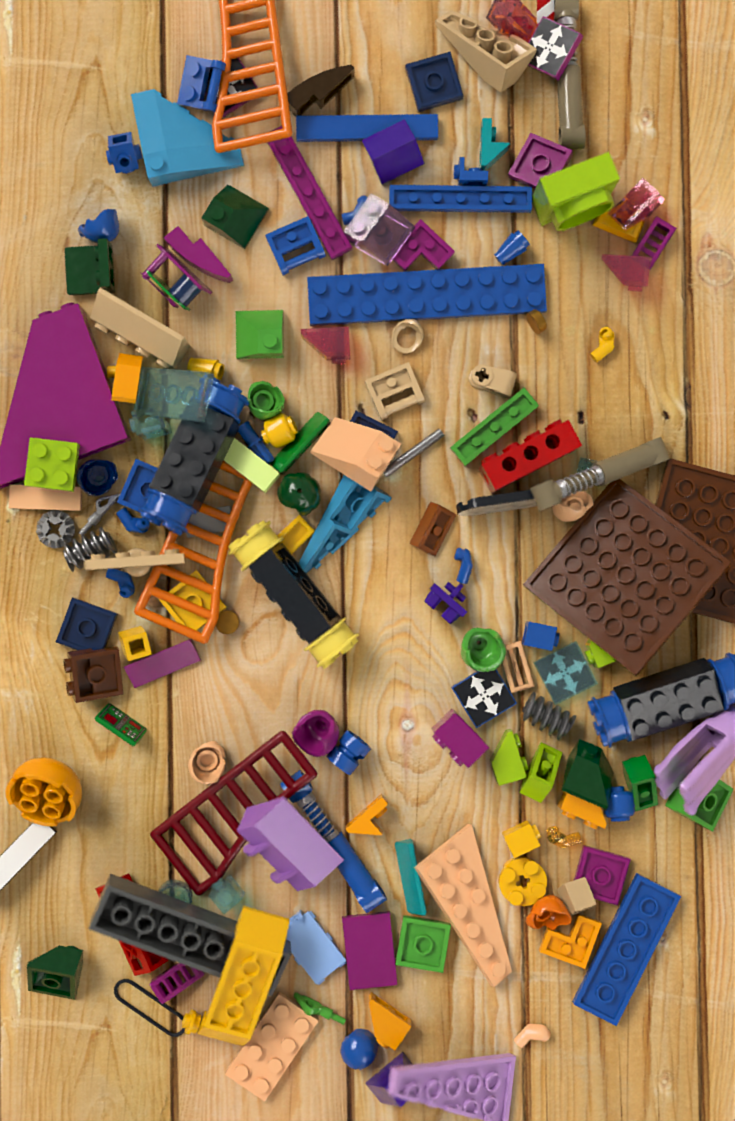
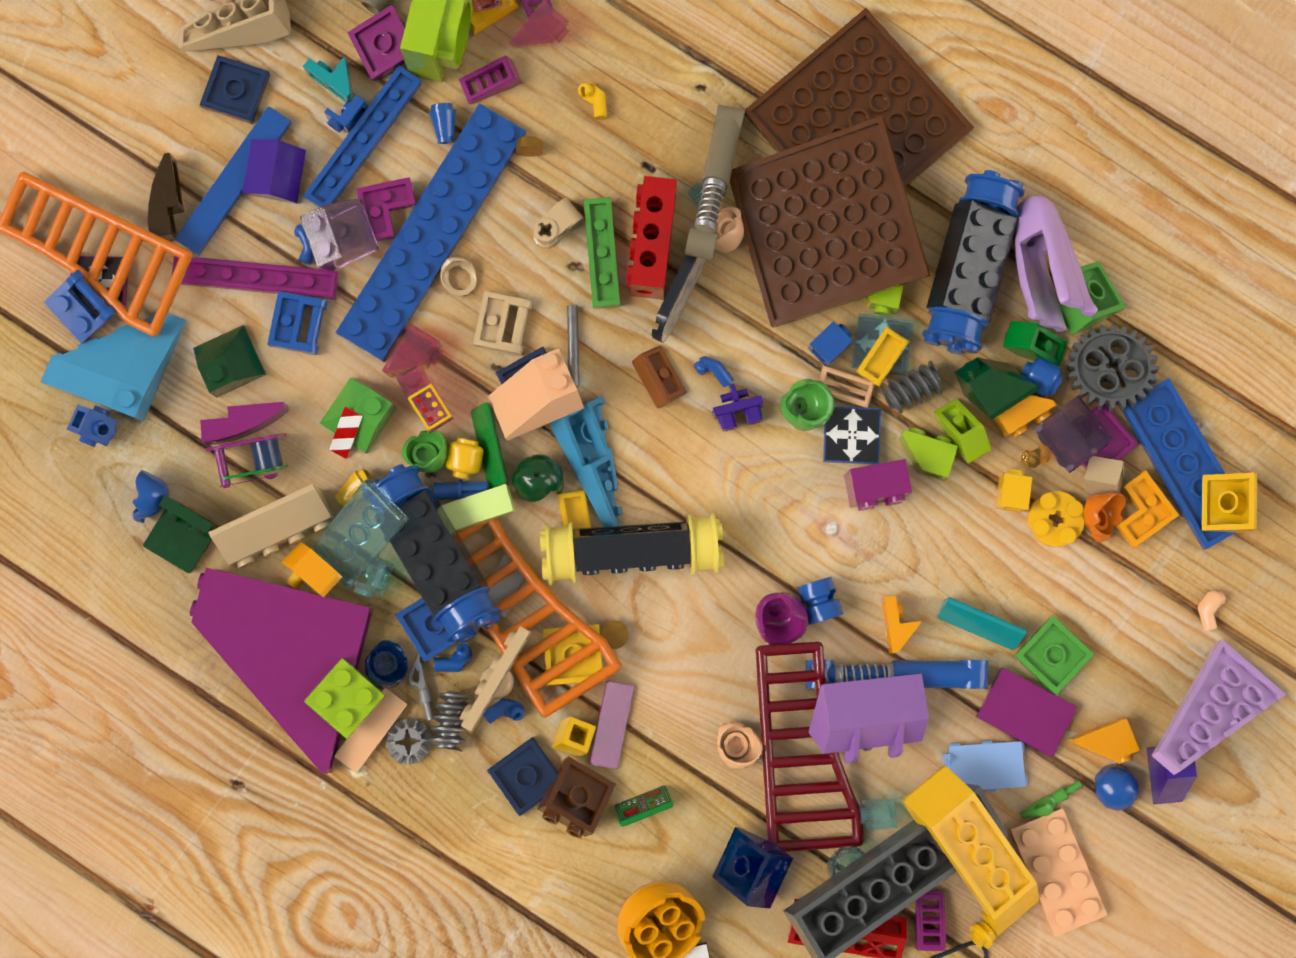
camera: 55 degrees left, 5 degrees down
(128, 830) = (752, 868): none -> clear blue slope
(240, 334) = (345, 432): none -> sticker
(302, 373) = (424, 398): none -> clear pink slope
(462, 892) = (1028, 583): light nougat wing -> none
(555, 679) = (882, 356): none -> yellow tile
(571, 271) = (494, 88): none -> magenta slope
(591, 855) = (1073, 434): none -> clear purple slope
(618, 1000) = (1229, 502): none -> yellow slope
(679, 862) = (1134, 358): none -> dark grey gear

